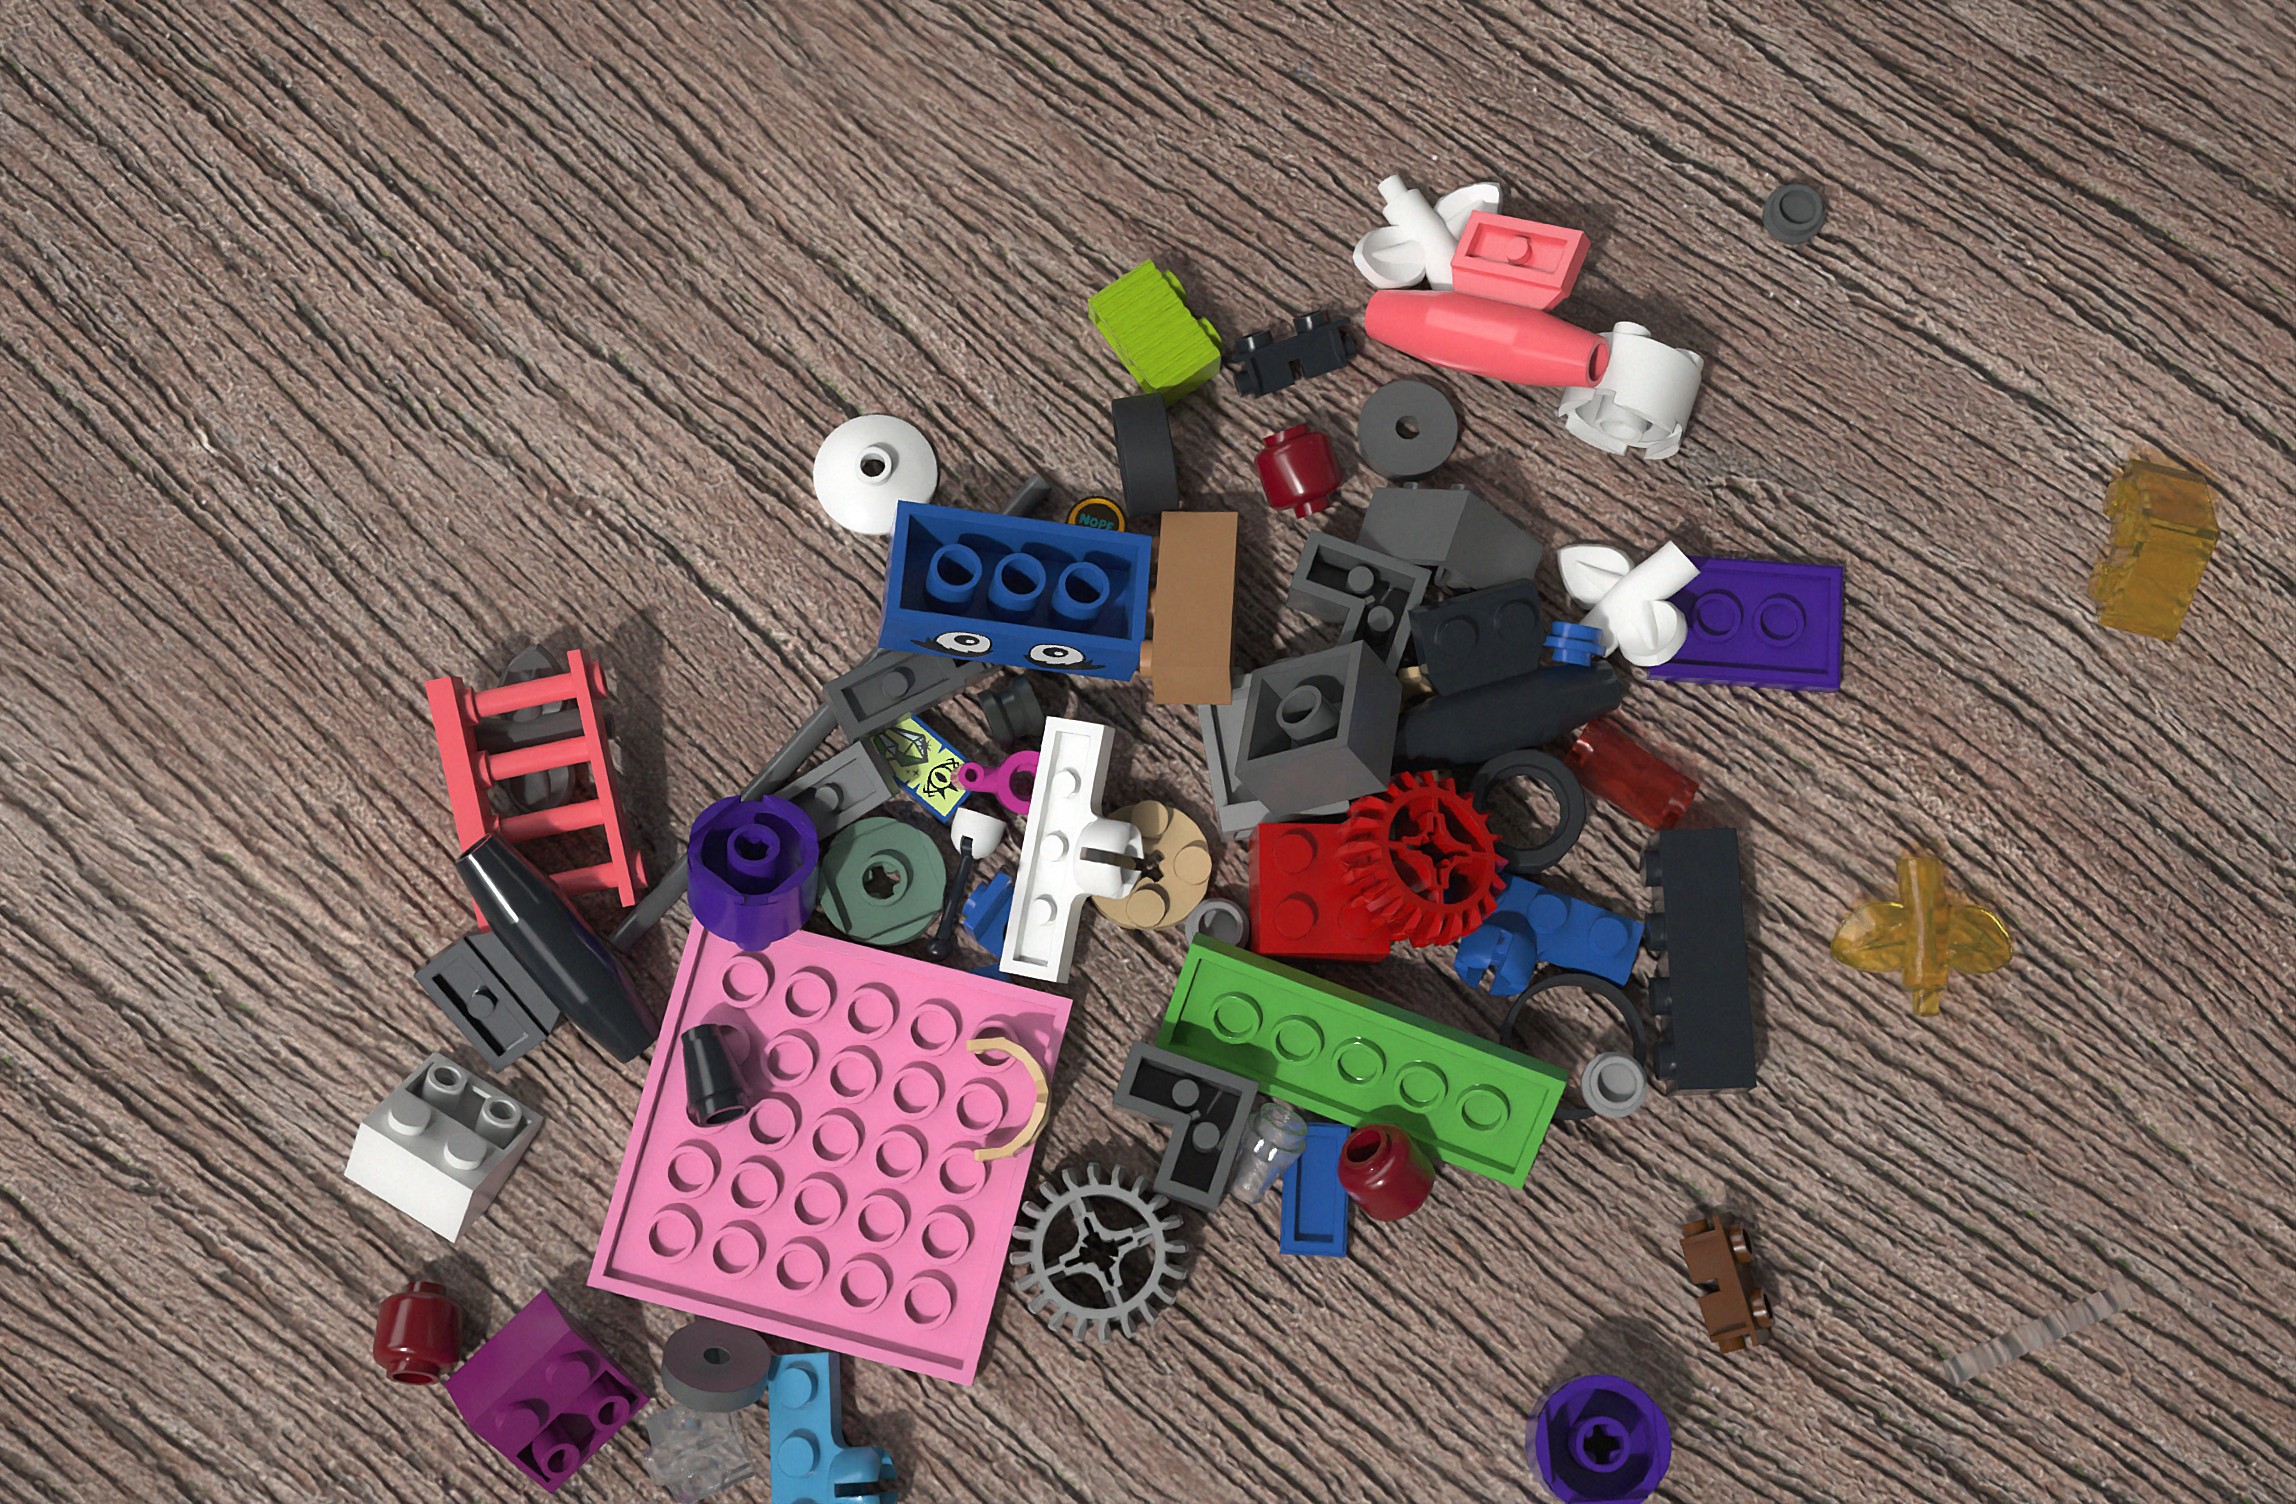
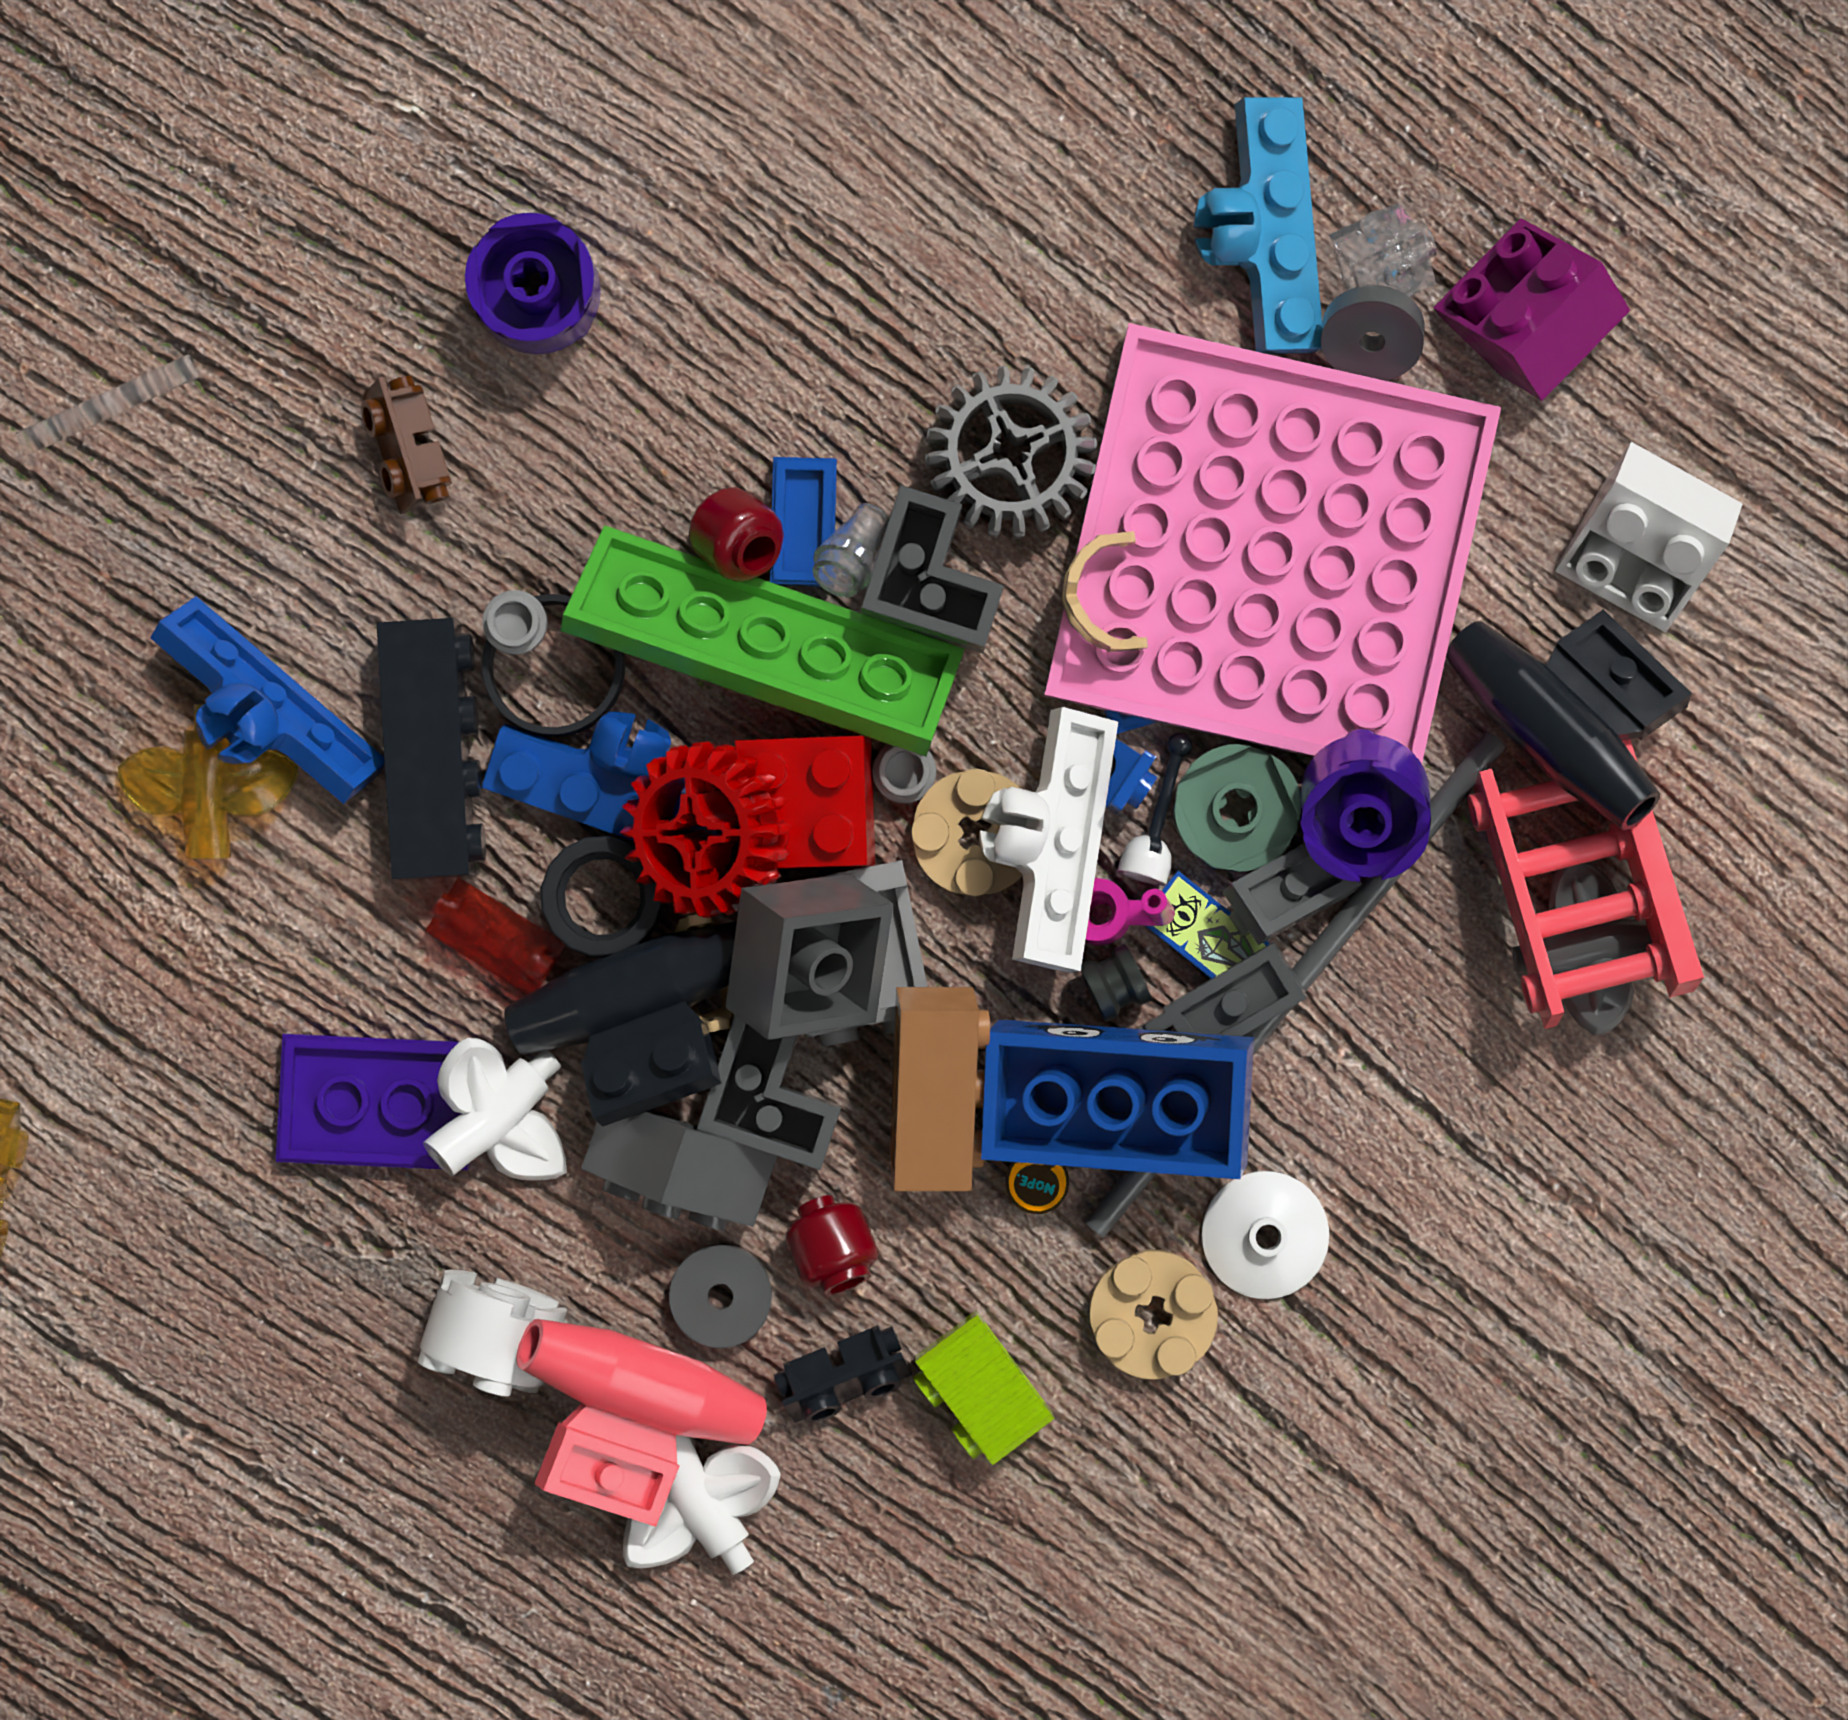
camera: 175 degrees right, 10 degrees up
(419, 1334) = (1657, 357): dark red head -> none
(713, 1078) = (1392, 603): black cone -> none
(1005, 431) = (1172, 1346): none -> tan plate
(1145, 454) = (990, 1250): black tyre -> none
(1575, 643) = (551, 1063): blue plate -> none
(1793, 214) = (317, 1545): dark grey plate -> none
(1870, 1012) = (262, 705): none -> blue plate

